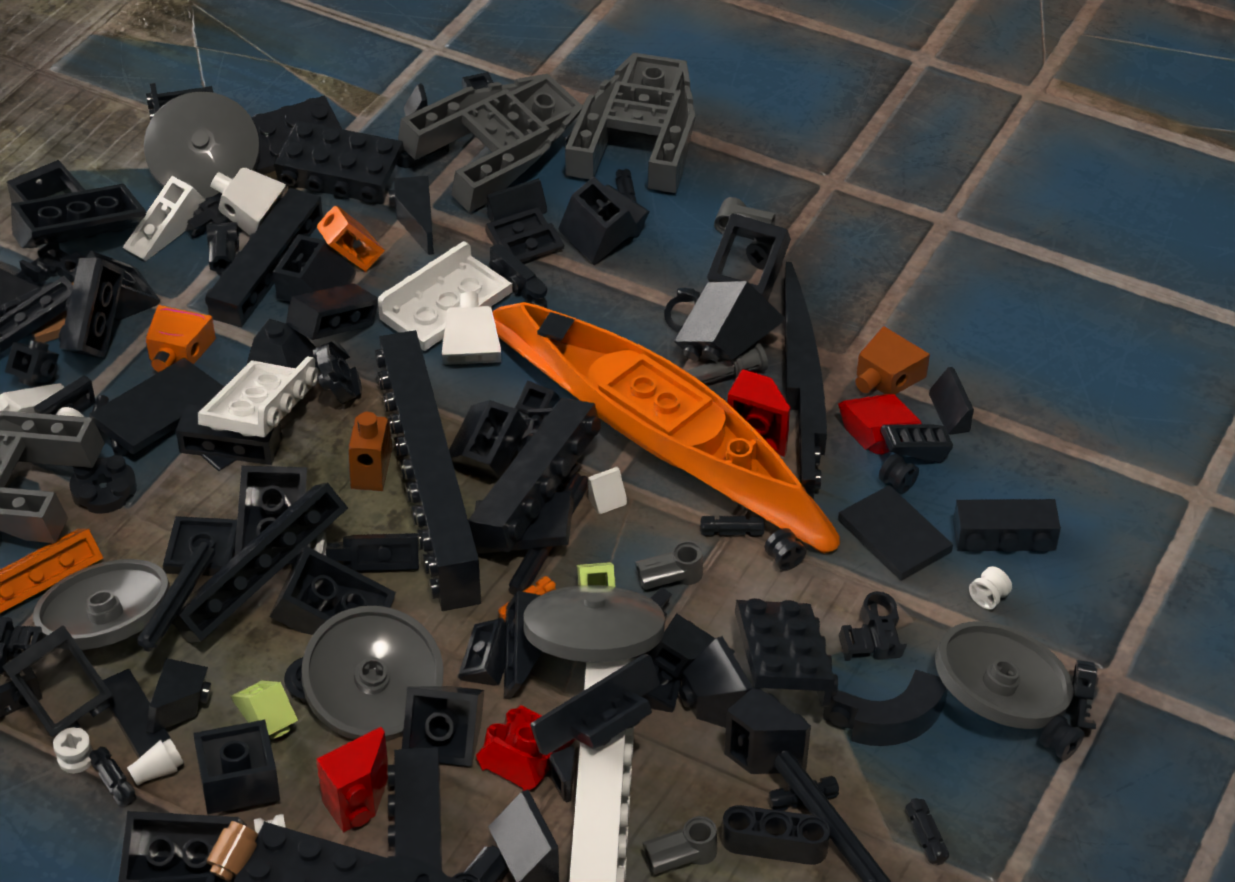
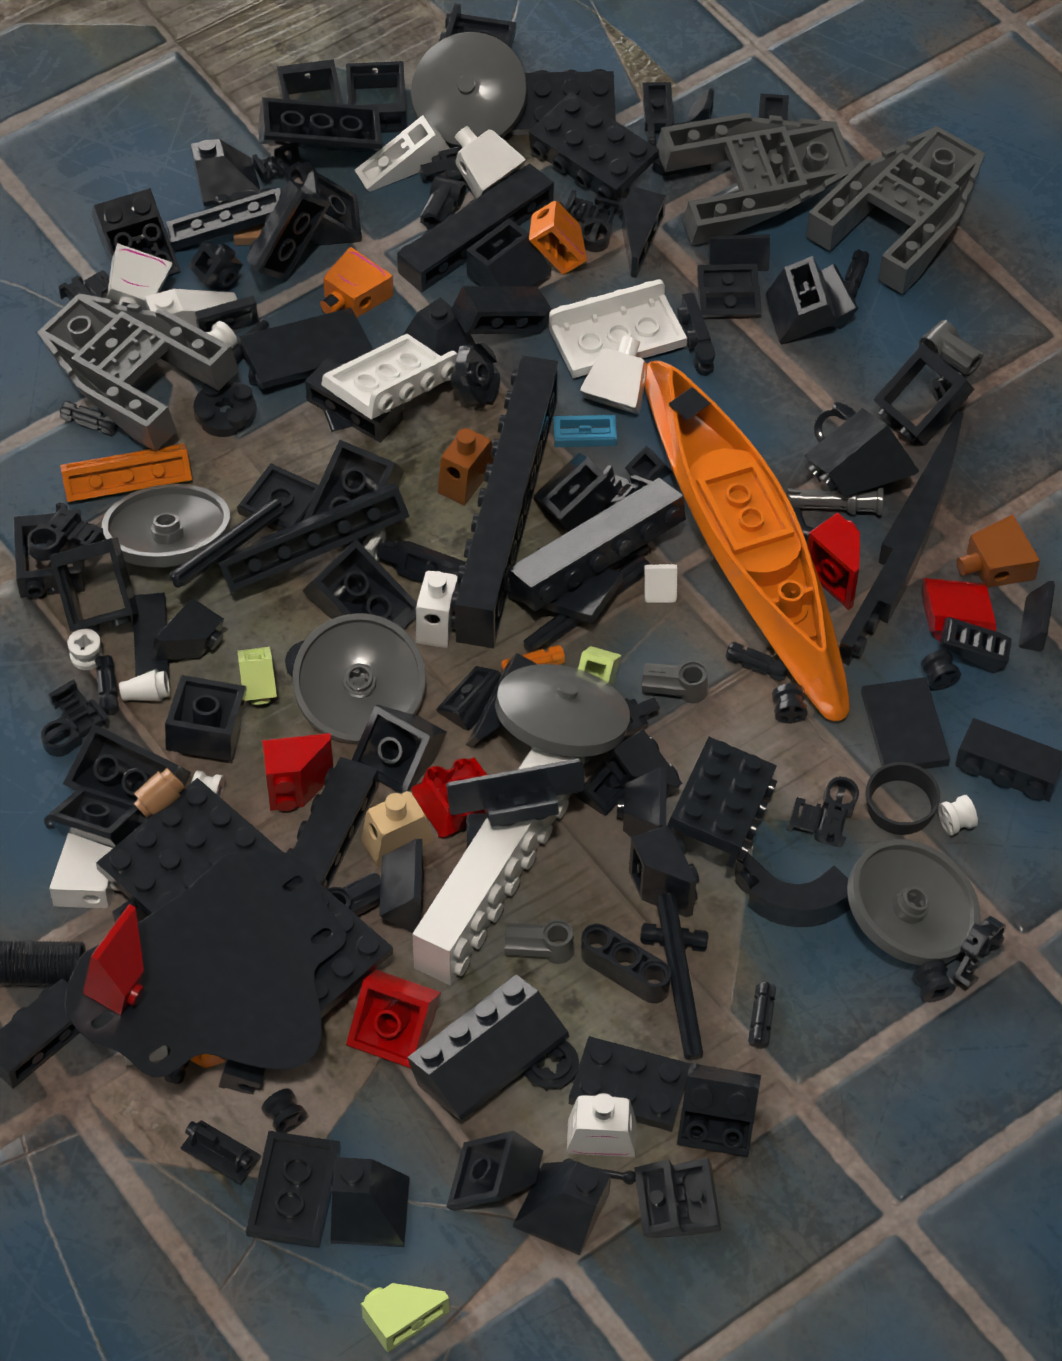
camera: 25 degrees right, 10 degrees up
(96, 822) = (79, 718): none -> black piece
(115, 160) = (387, 75): none -> black window
(373, 217) = (596, 219): none -> black piece
(377, 115) = (657, 108): none -> black hinge
(410, 570) = (435, 599): none -> white torso
(463, 392) = (585, 435): none -> dark azure tile
(482, 796) = (393, 825): none -> tan torso
(933, 569) = (904, 772): none -> black tyre

